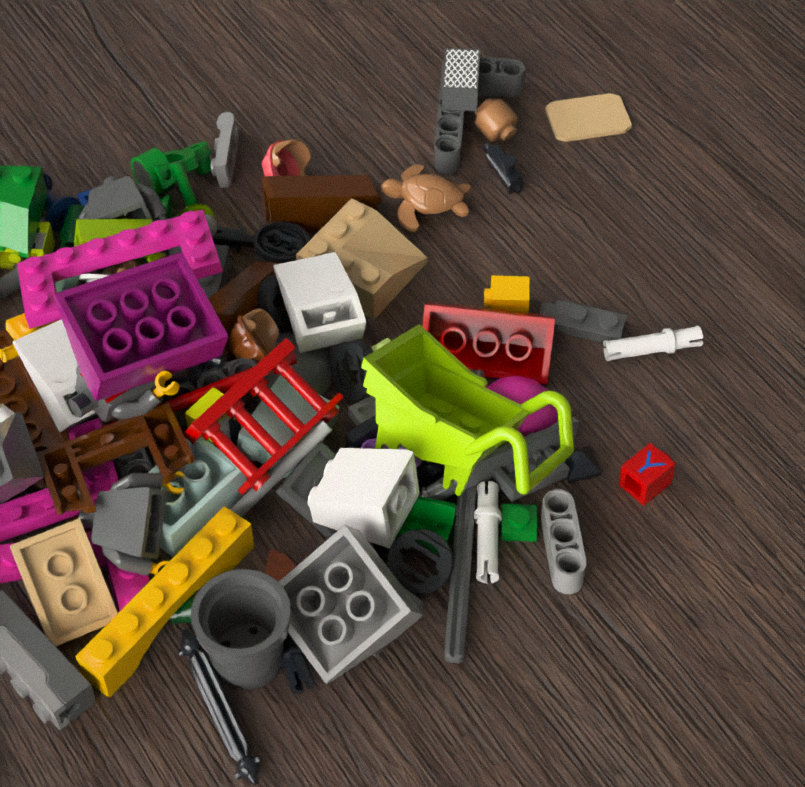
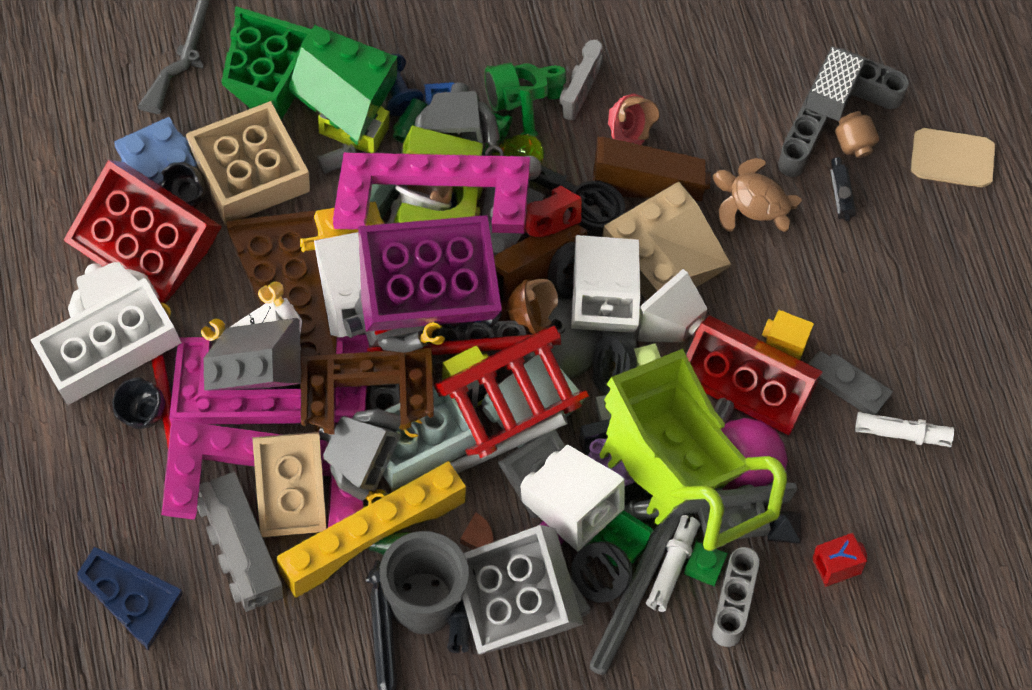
camera: 15 degrees right, 10 degrees up
(239, 257) = (551, 214): none -> red leg
(391, 306) = (671, 312): none -> white slope

